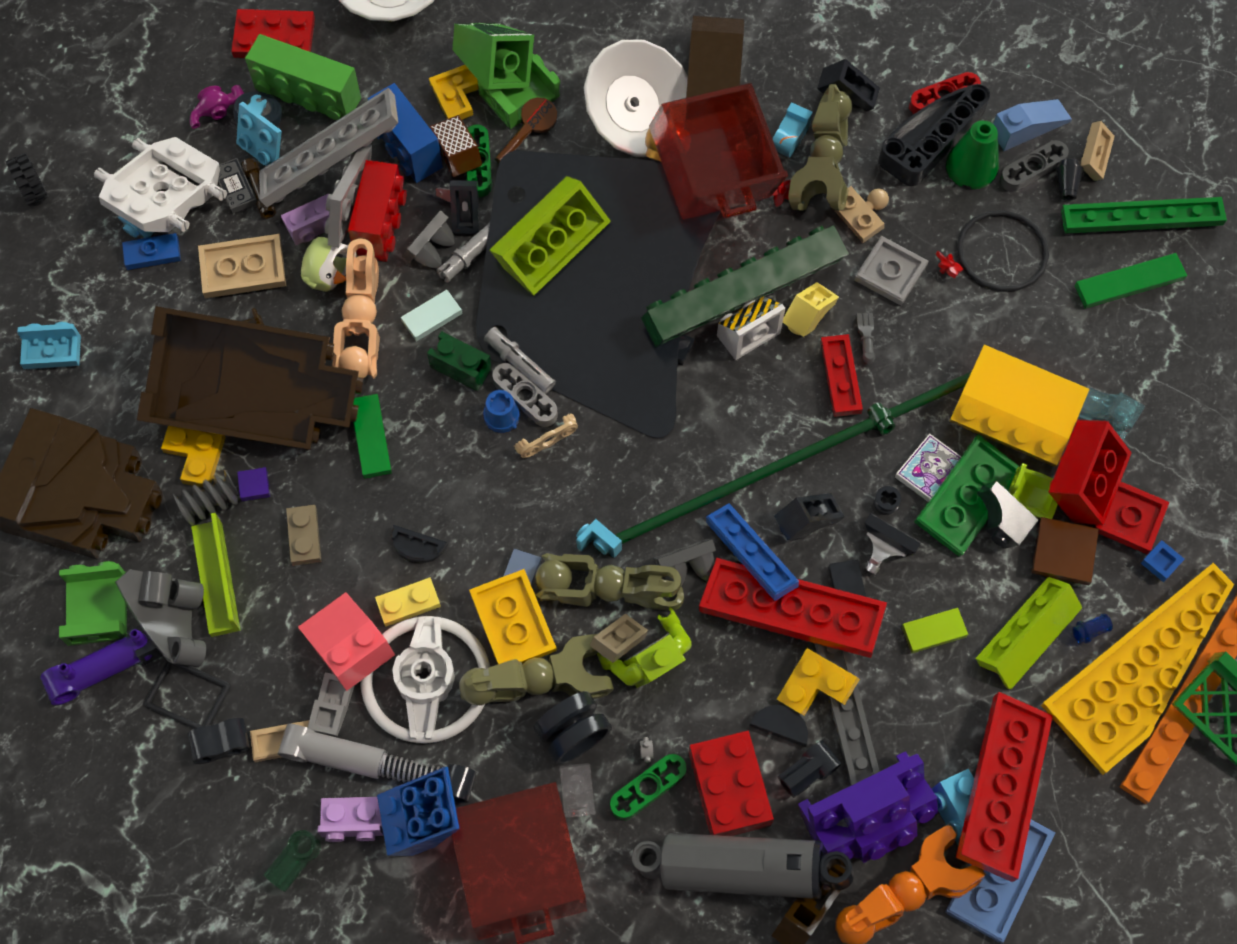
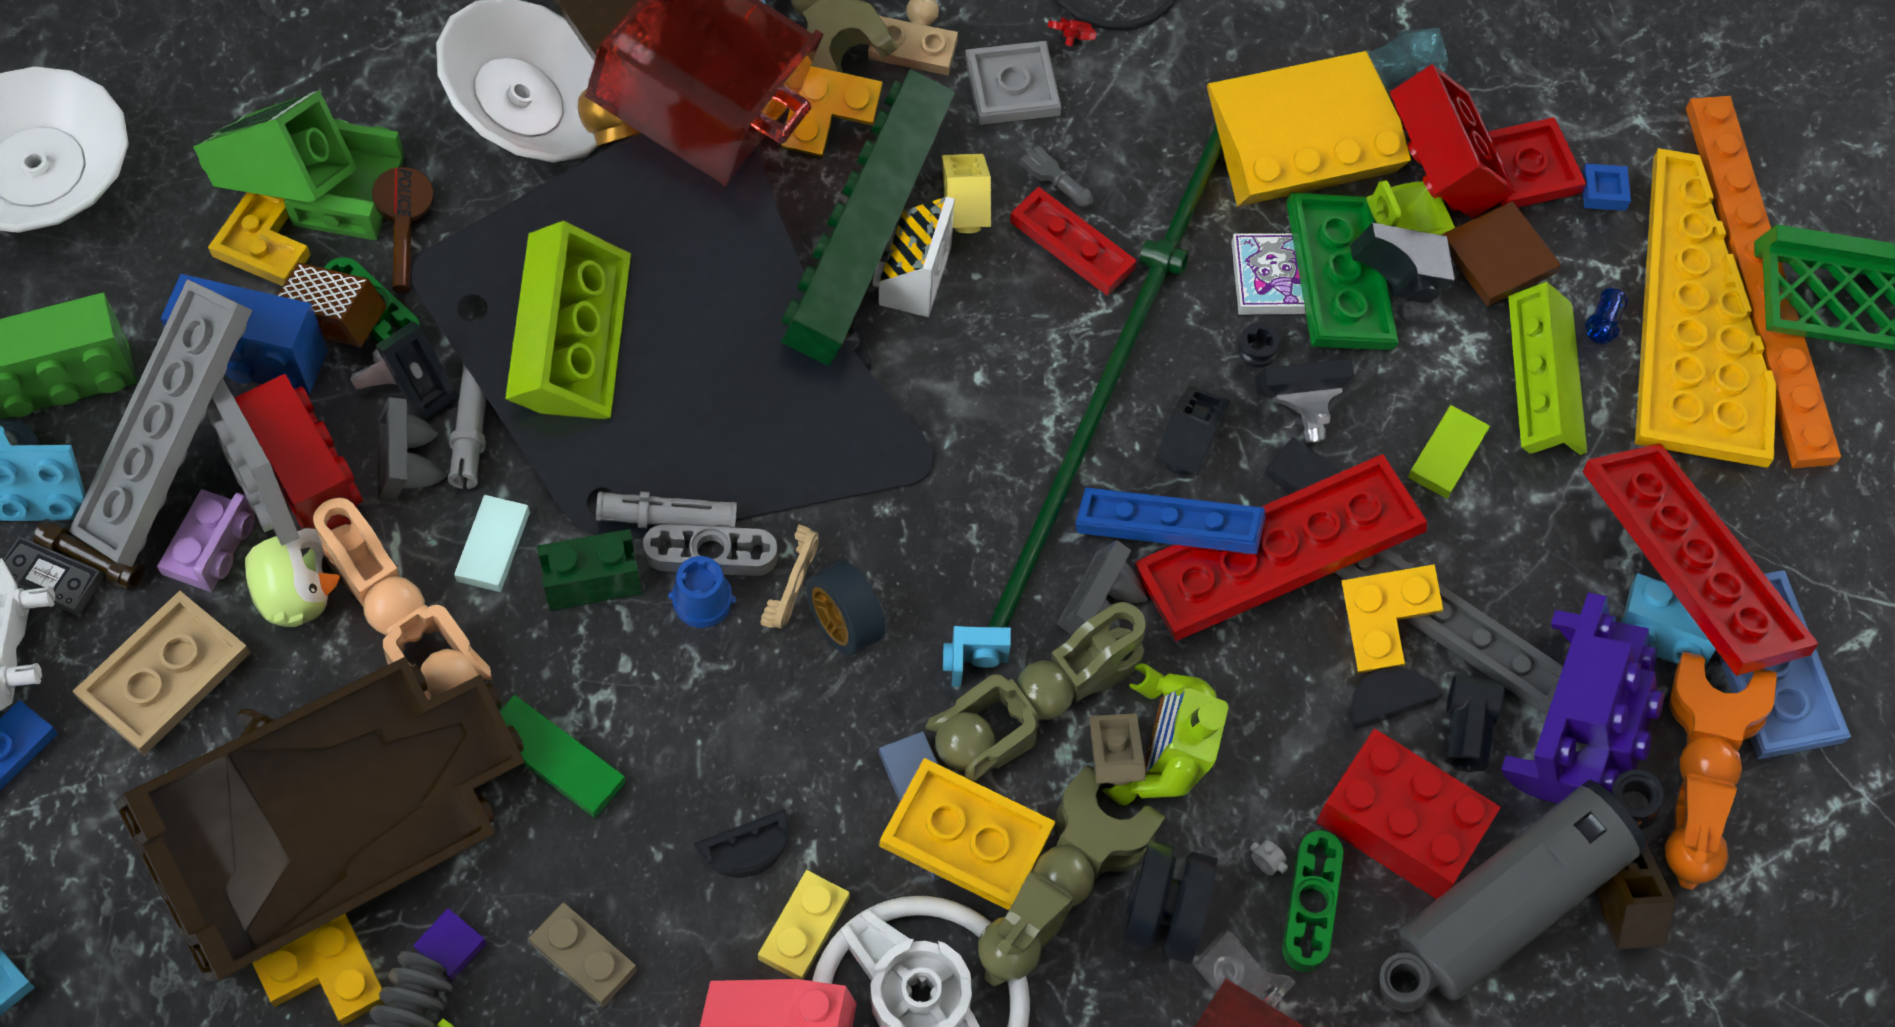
camera: 45 degrees left, 5 degrees down
(555, 470) = (845, 607): none -> black wheel
(778, 209) = (832, 96): none -> yellow plate

